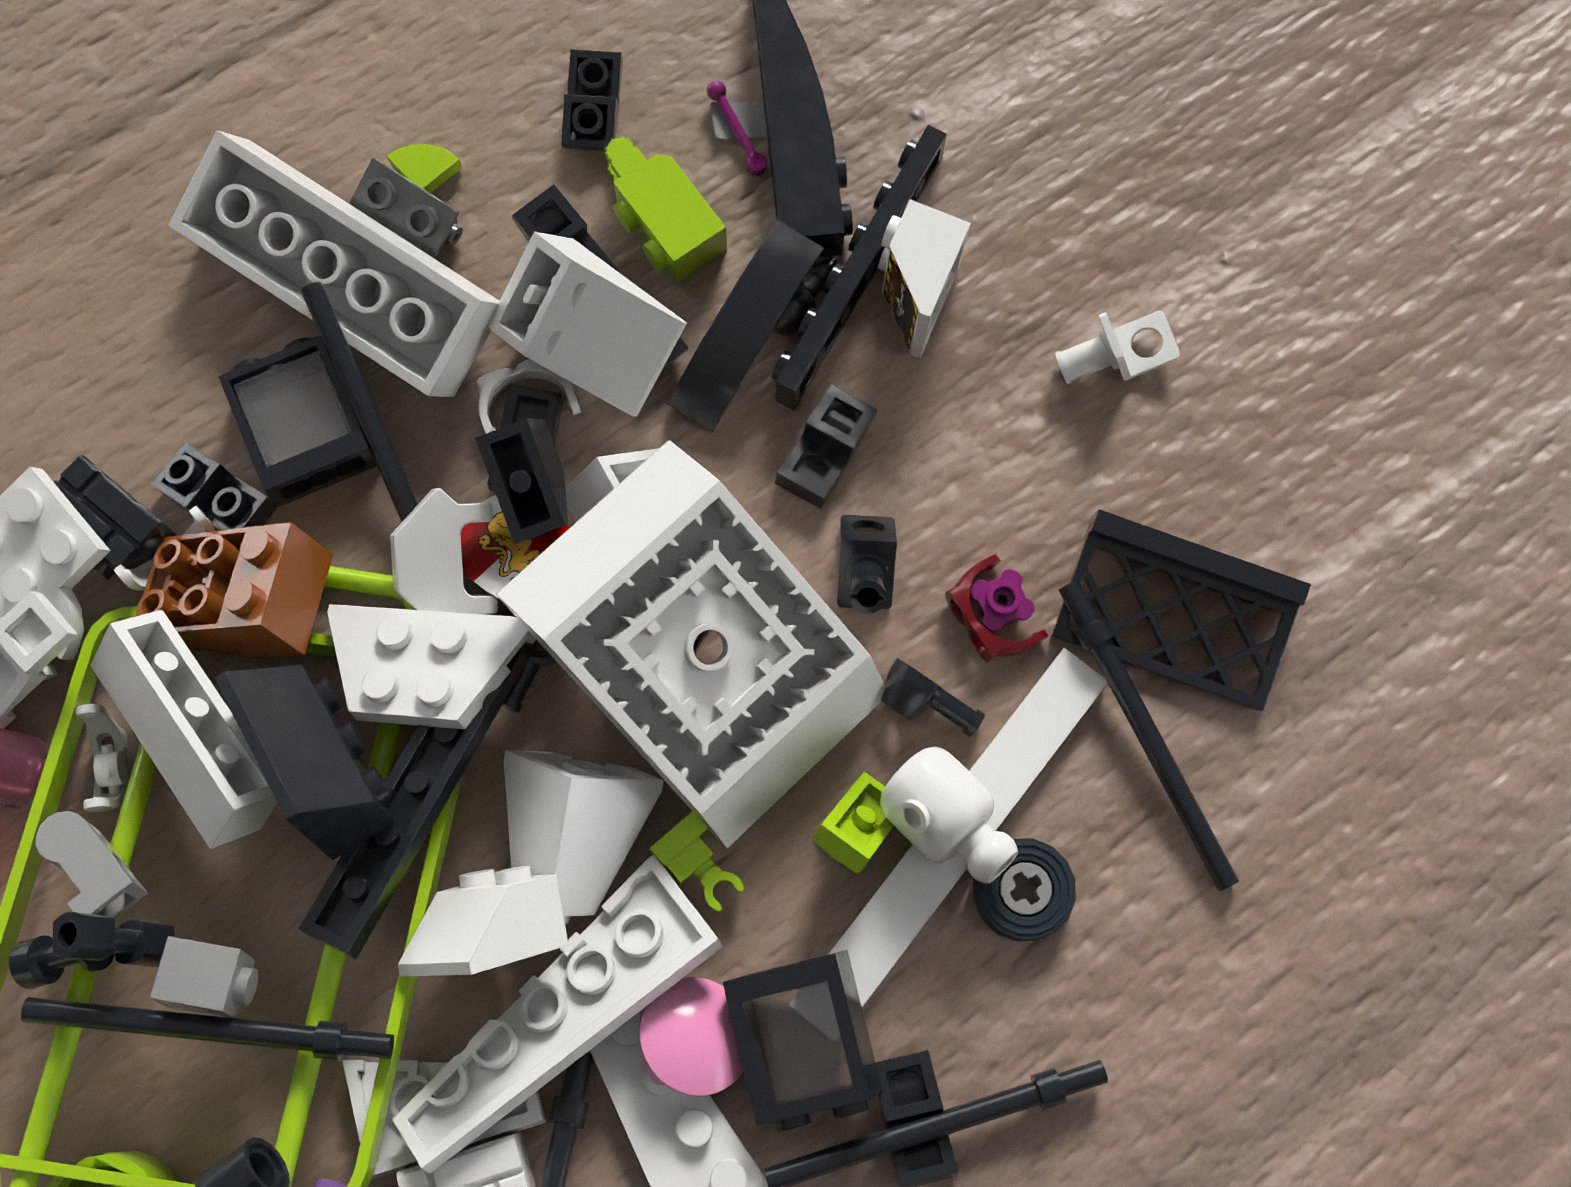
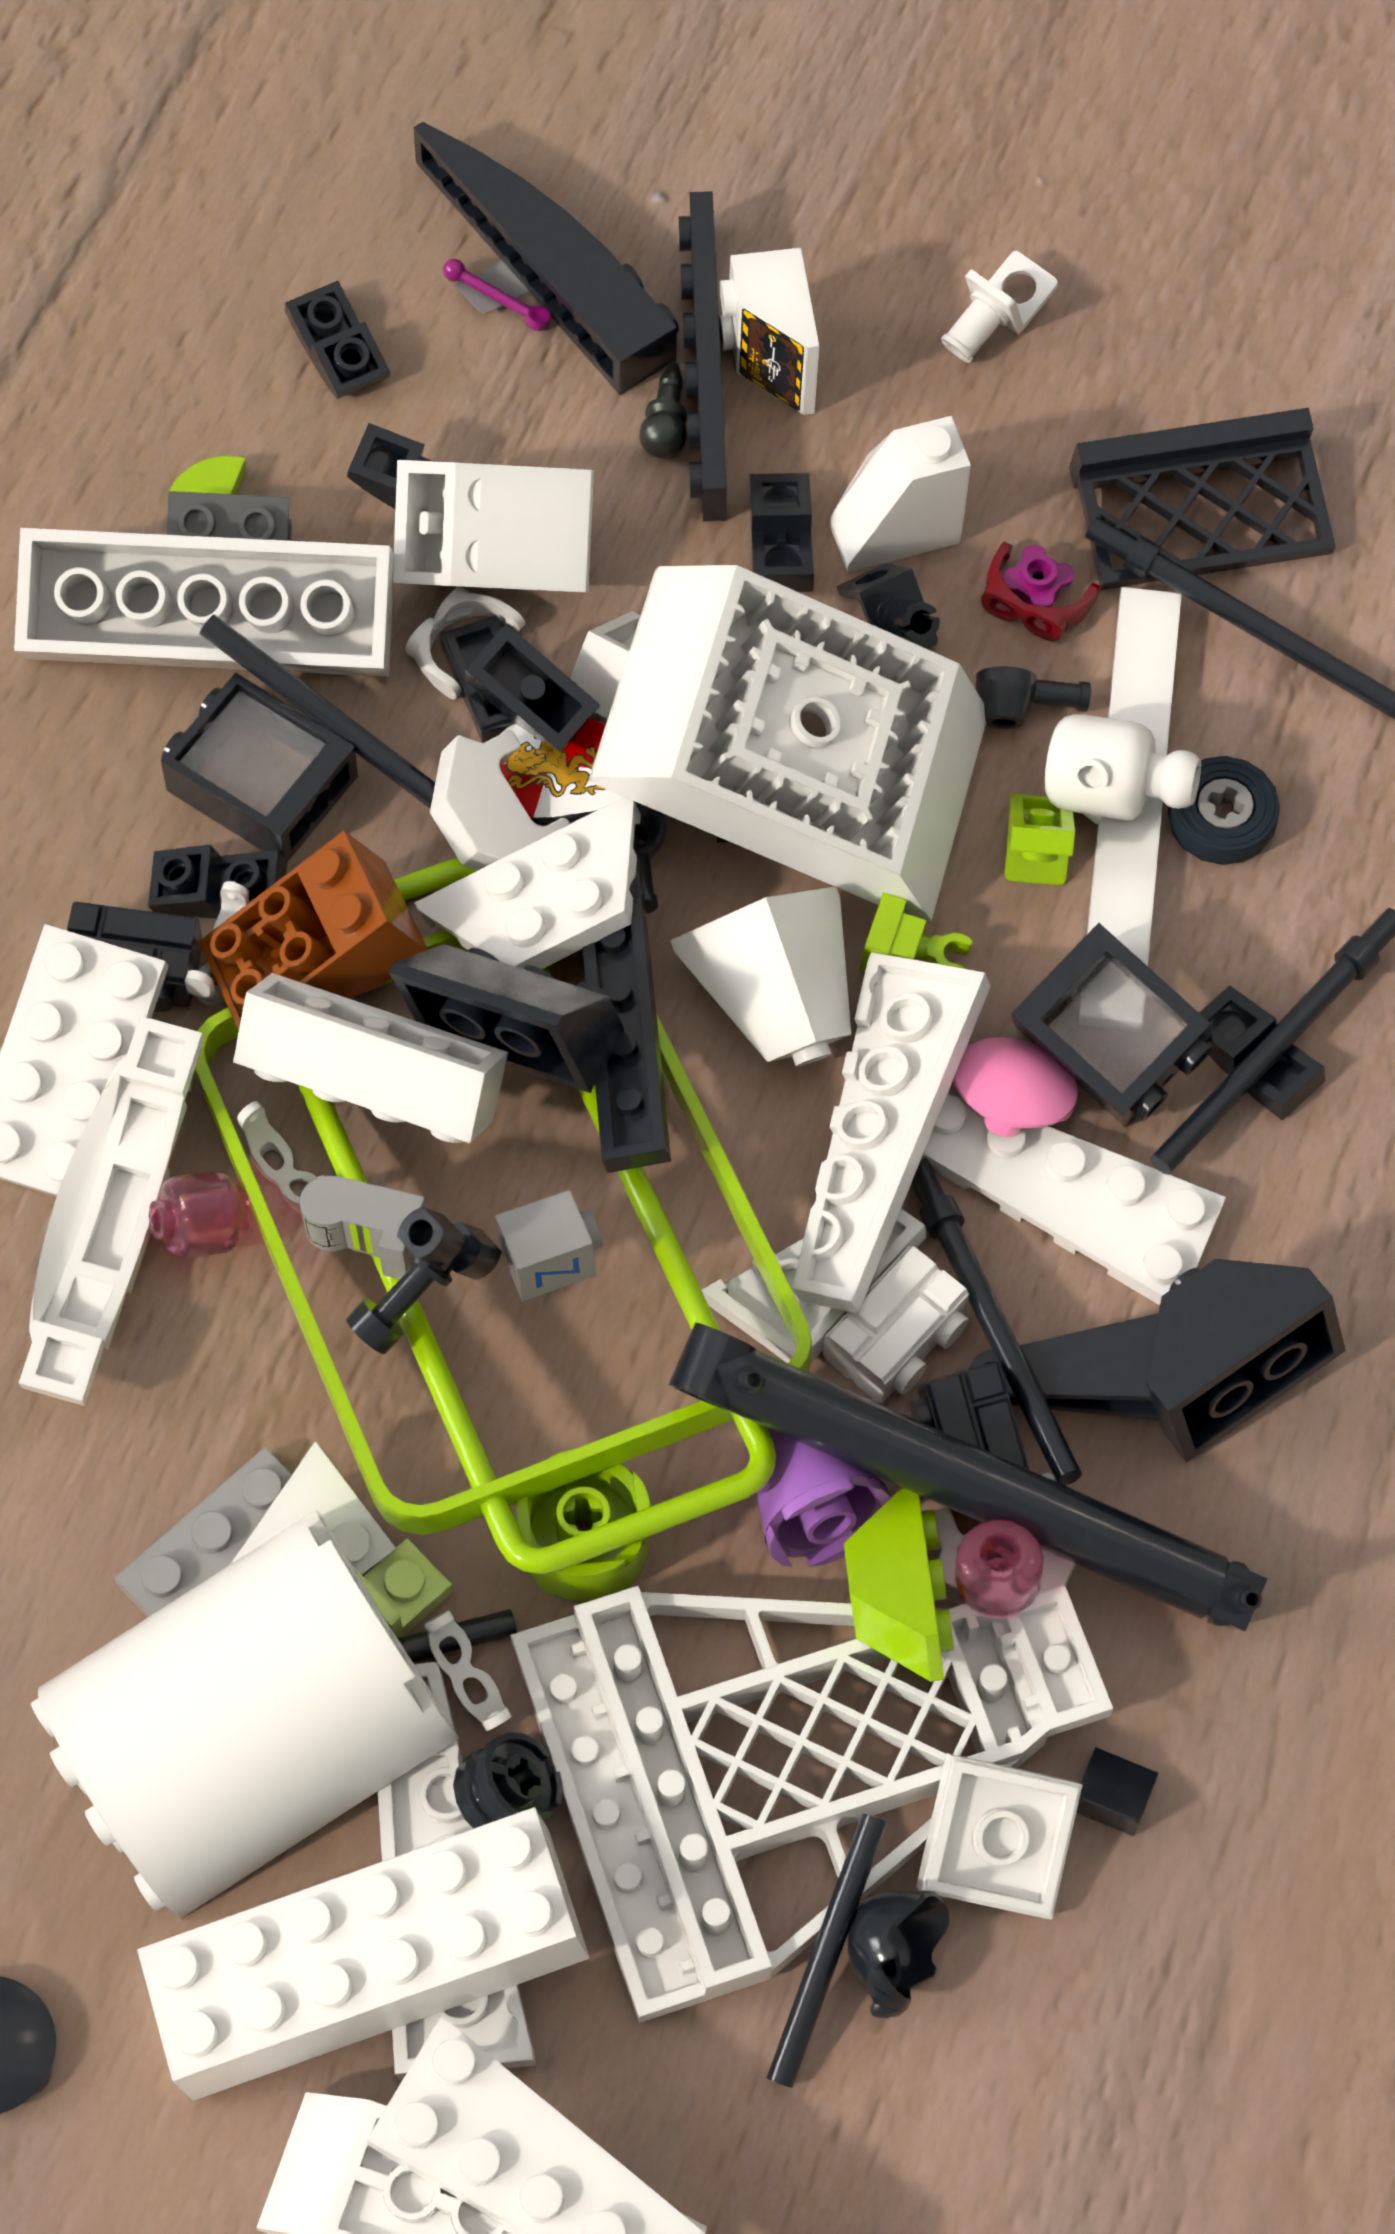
camera: 30 degrees left, 10 degrees down
(110, 769) = (297, 1165): white piece -> none
(325, 1040) = (694, 1237): black bar -> none
(487, 924) = (768, 1069): white slope -> none
(664, 210) = (480, 399): lime hinge -> none
(744, 325) = (637, 461): black slope -> none
(930, 474) = (904, 497): none -> white slope

